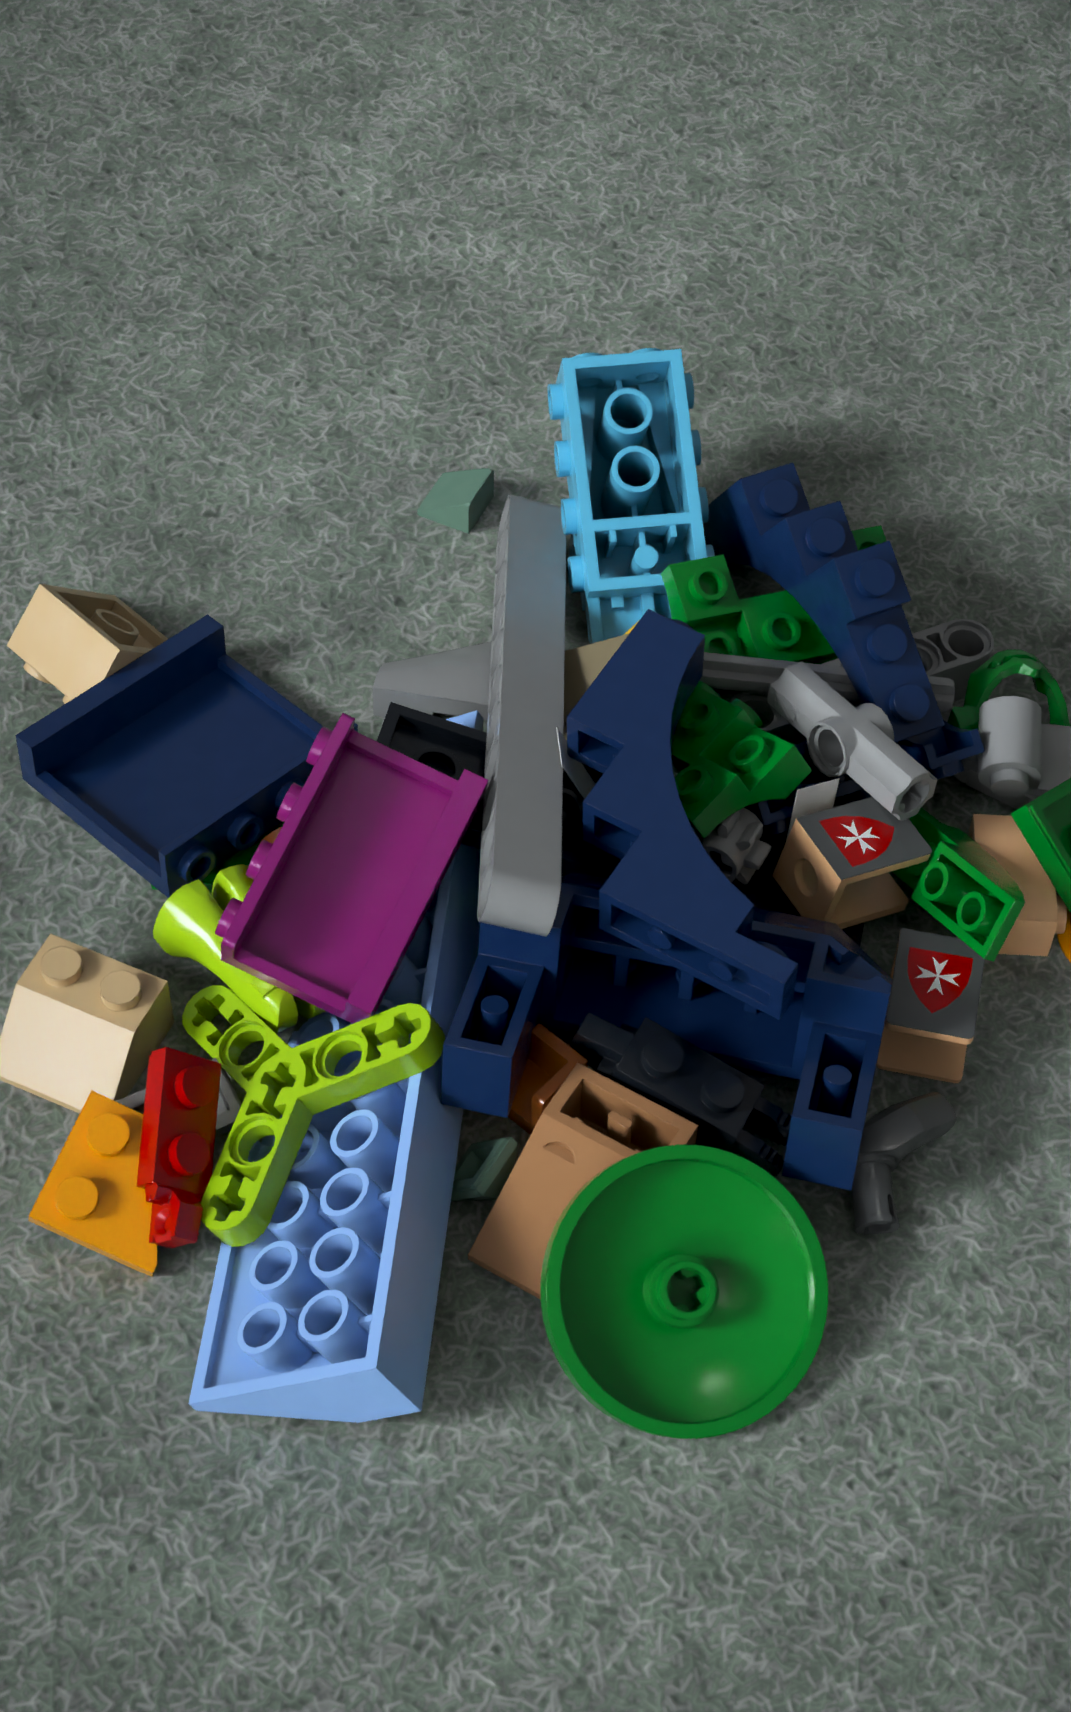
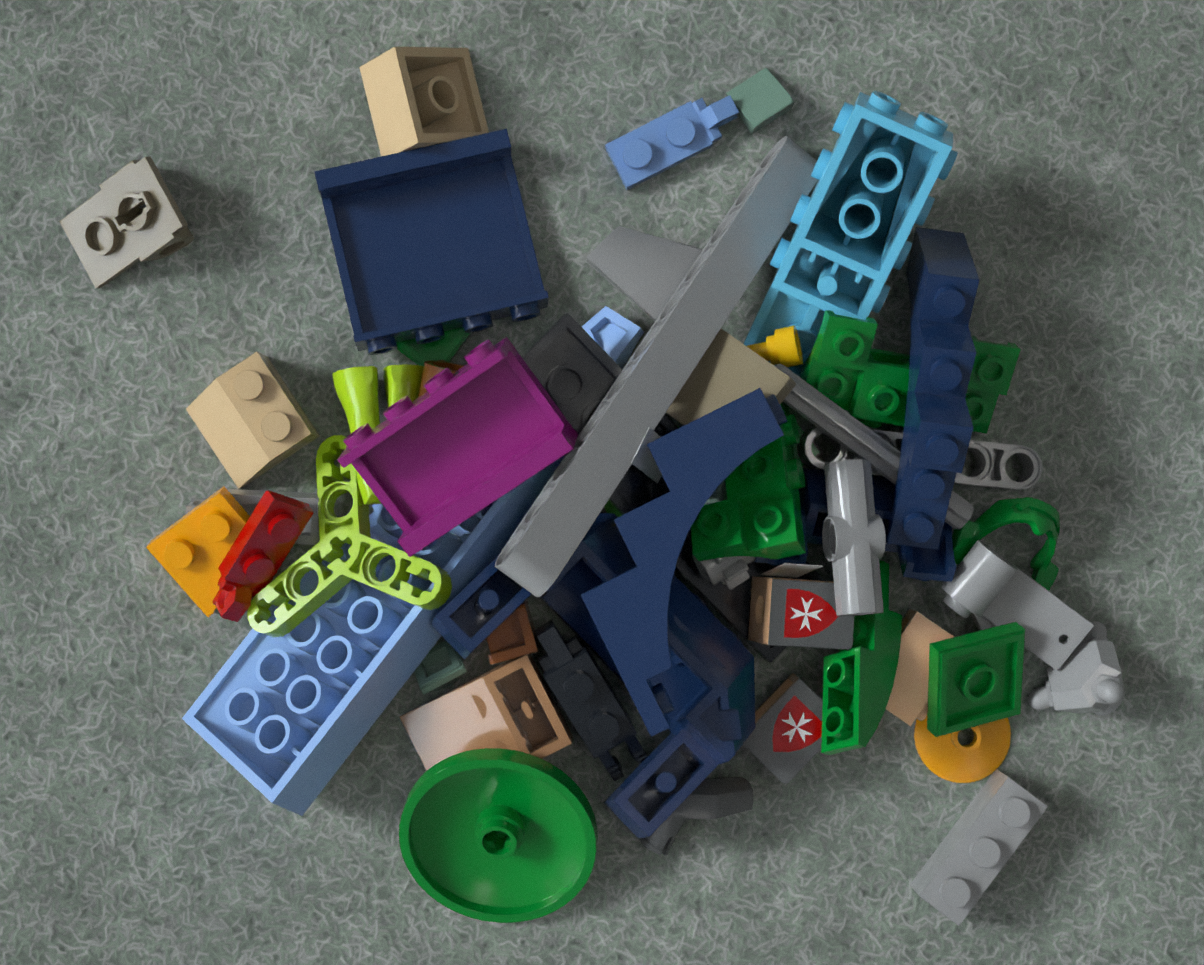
camera: 35 degrees right, 35 degrees up
(387, 569) = (669, 140): none -> medium blue hinge

